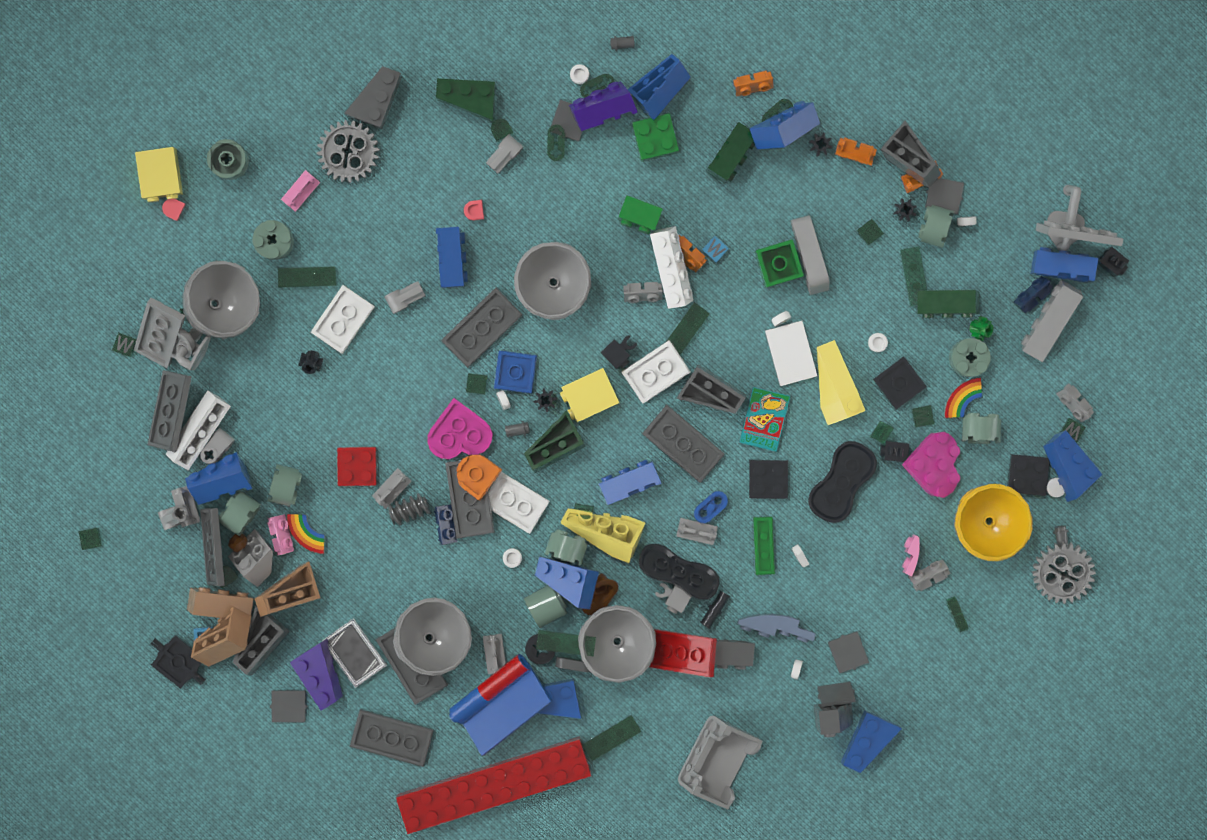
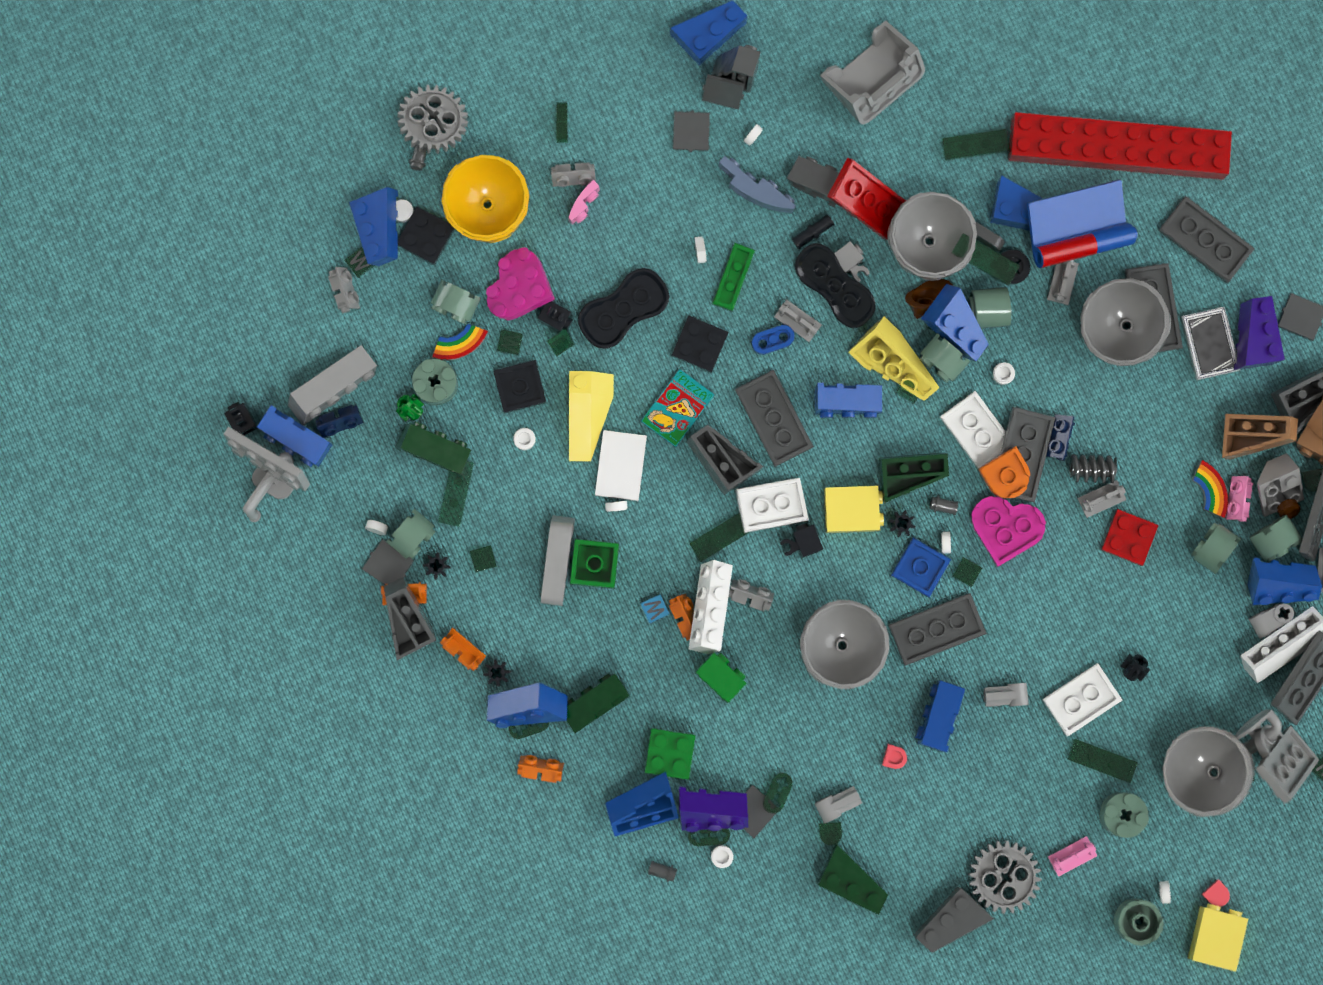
camera: 155 degrees left, 5 degrees down
(215, 192) = (1164, 891): none -> white tile

